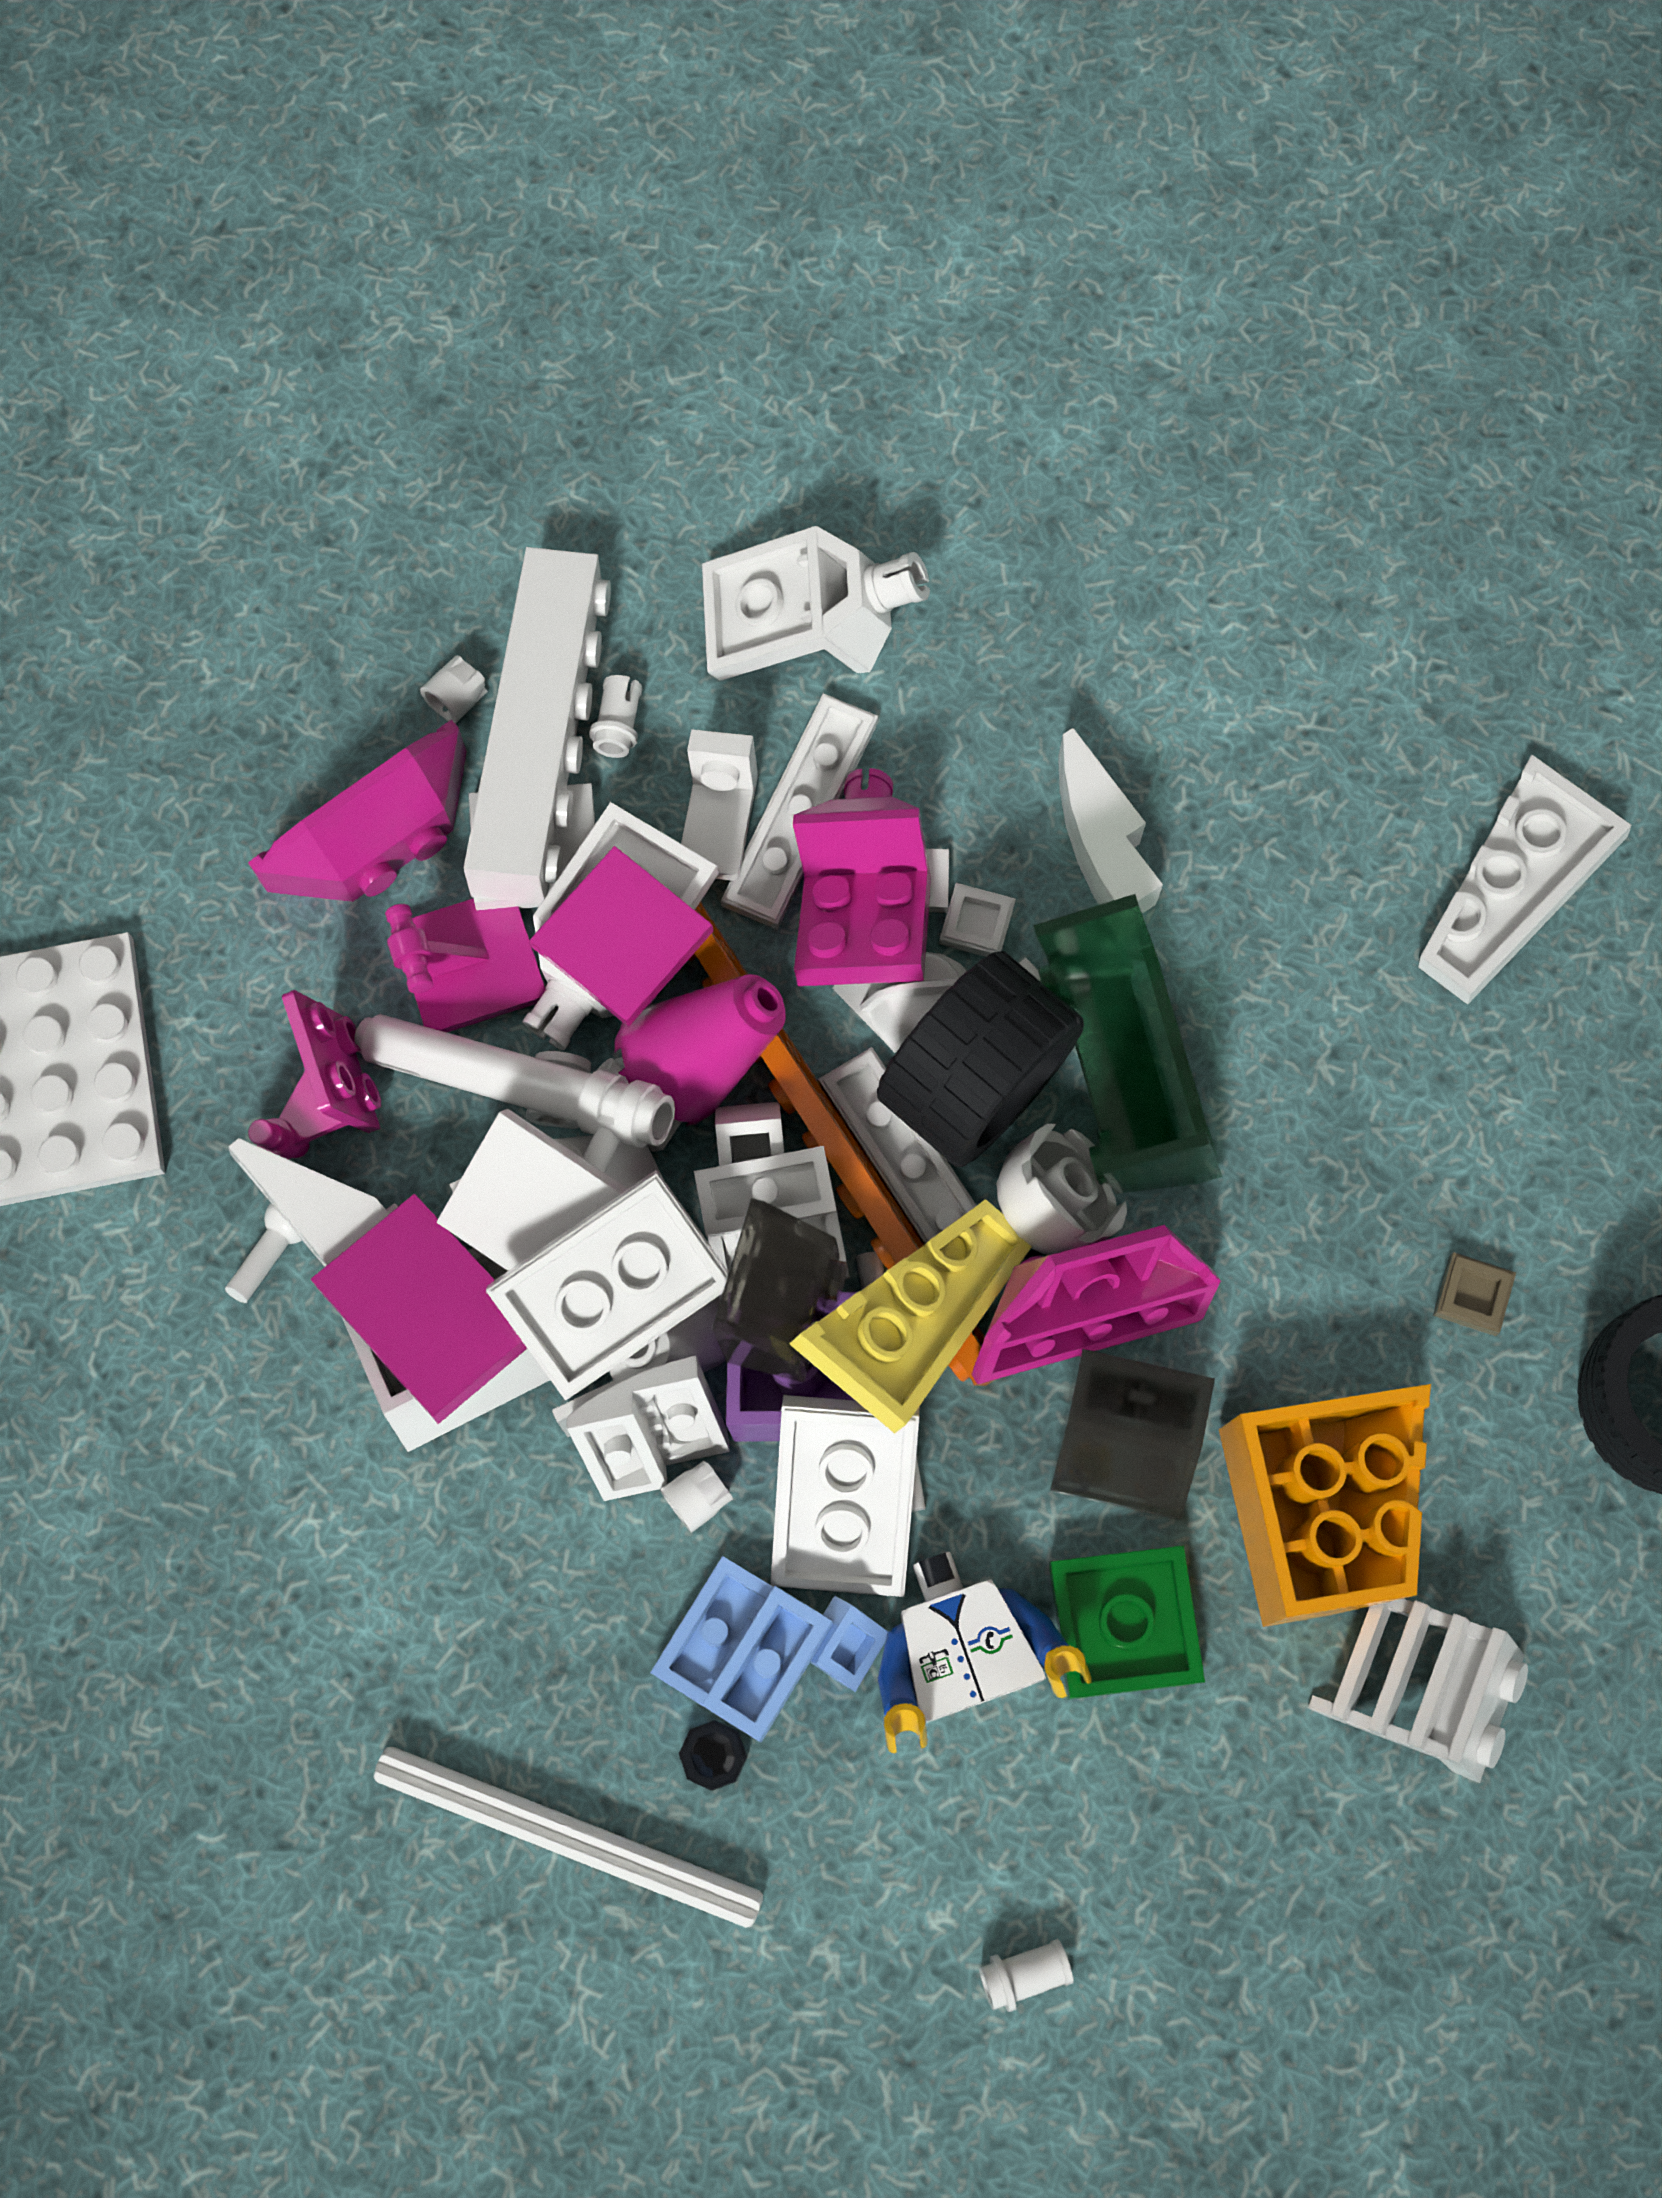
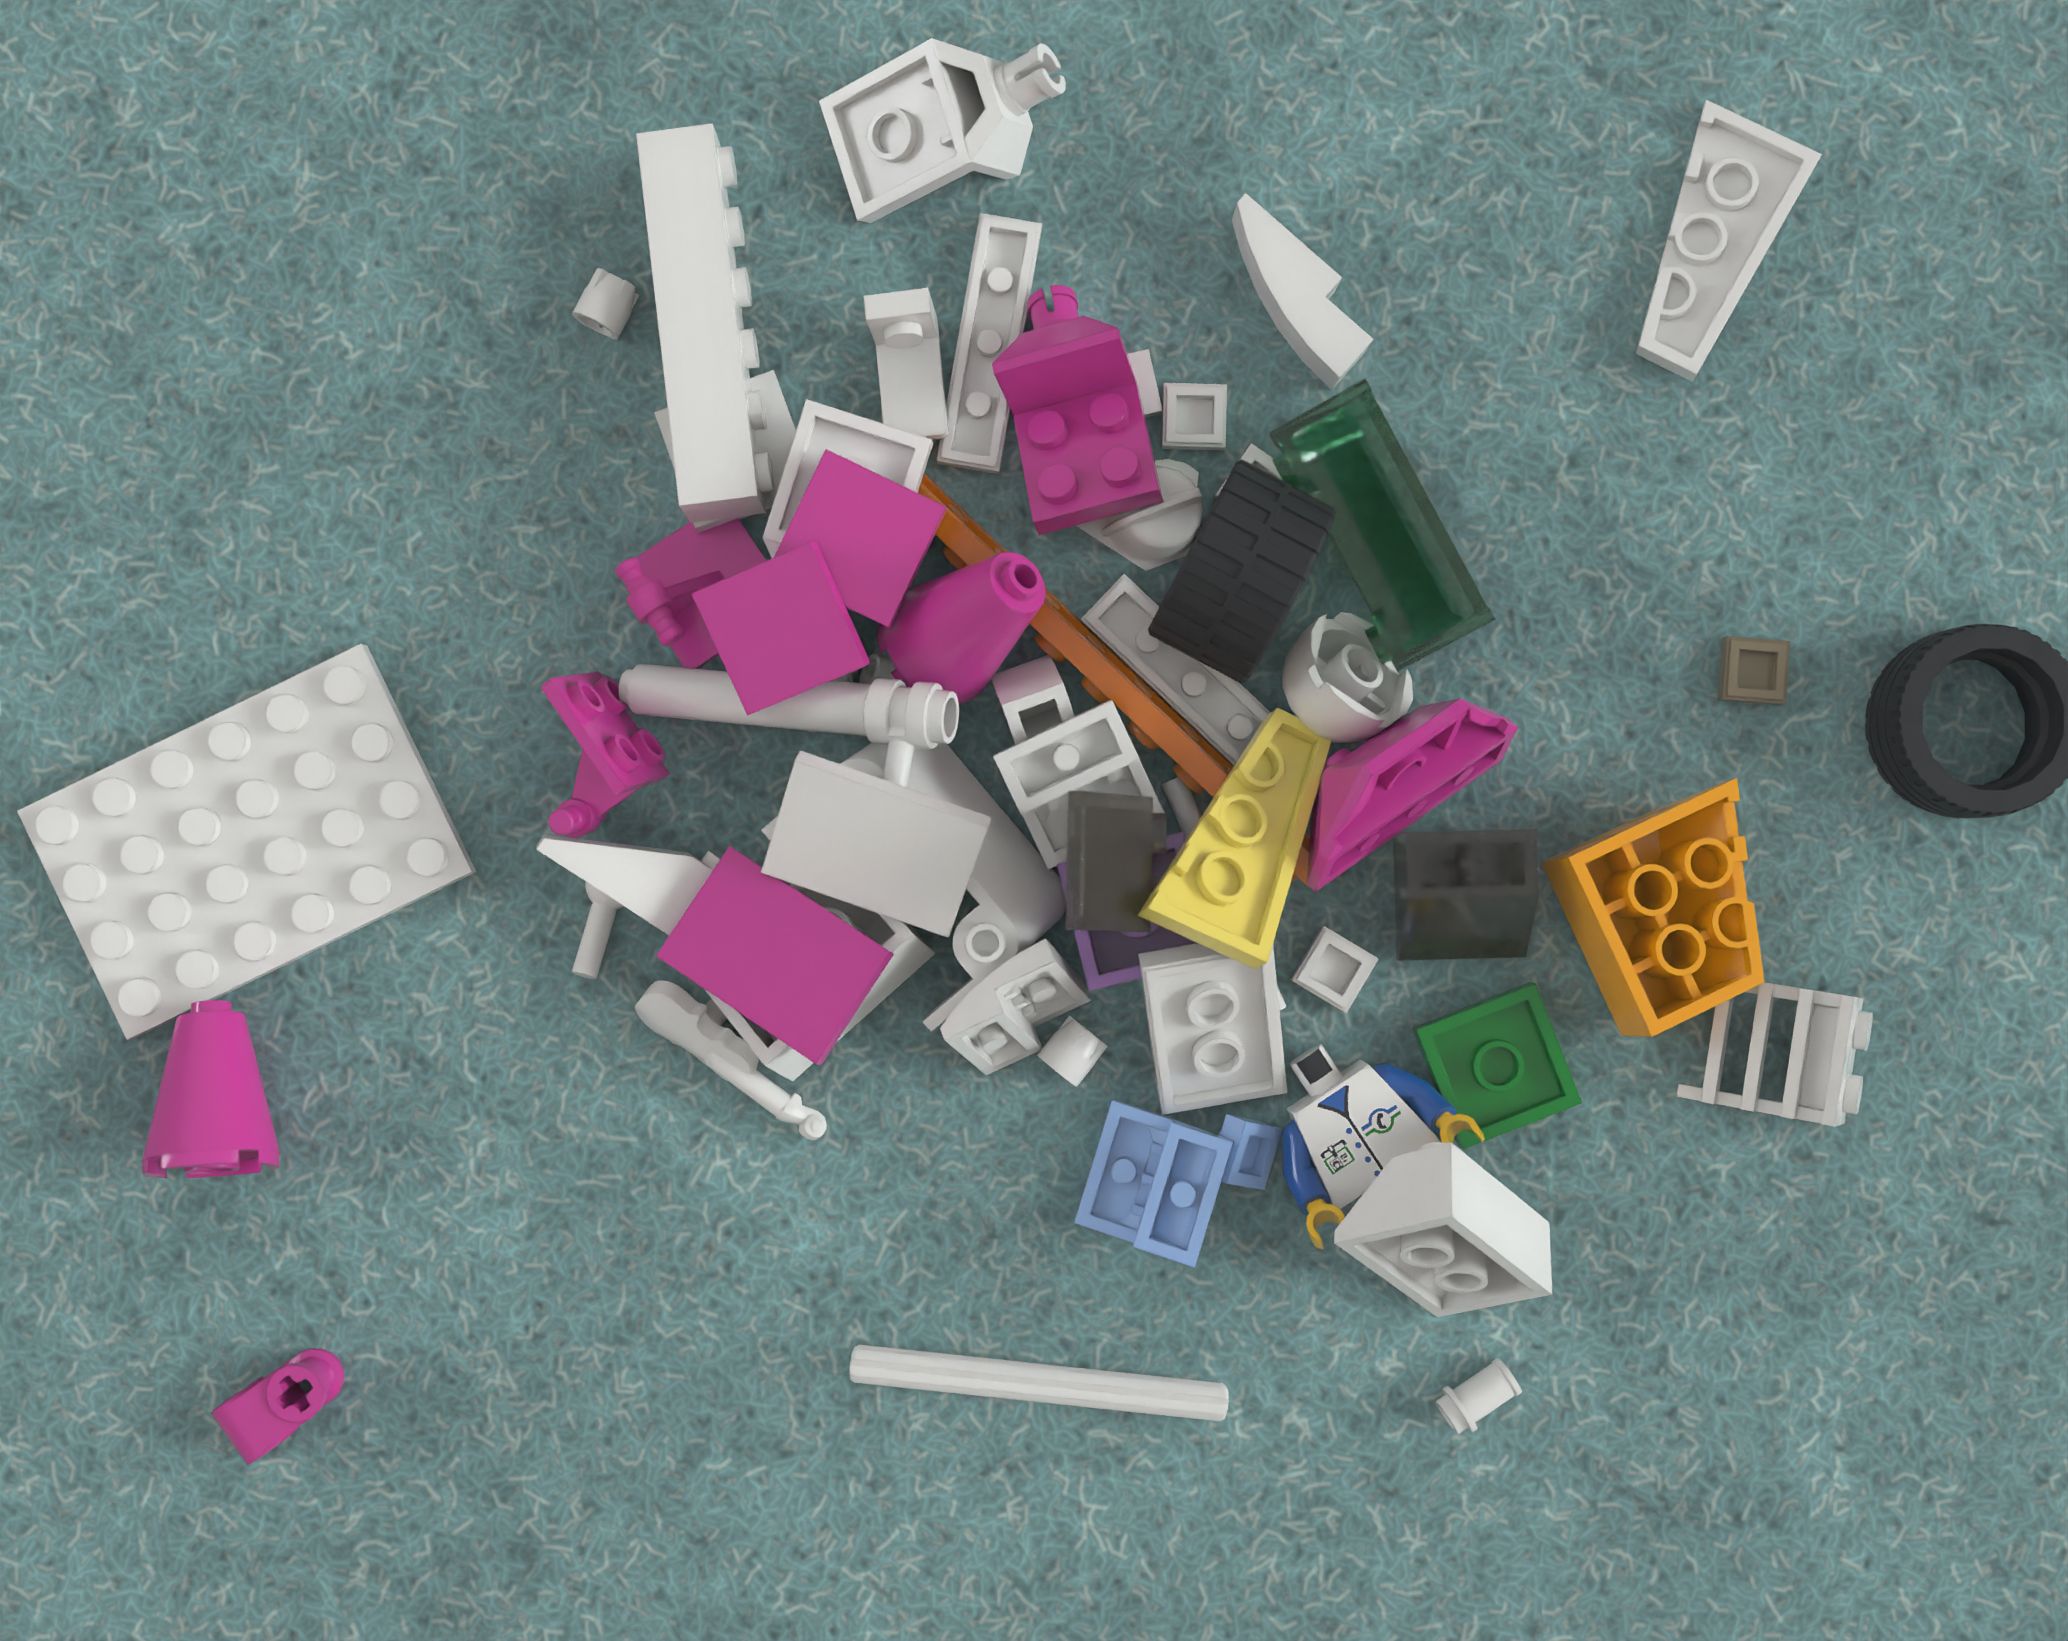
camera: 20 degrees left, 15 degrees up
(318, 1365) = (699, 1030): none -> white piece
(372, 826) = (572, 472): dark pink wedge -> none
(524, 996) = (781, 627): none -> dark pink tile
(610, 1285) = (950, 898): white tile -> none
(614, 730) = (779, 292): white pin -> none
(713, 1755) = (1150, 1282): black tile -> none
(983, 1483) = (1334, 969): none -> white tile
(1029, 1773) = (1448, 1233): none -> white slope

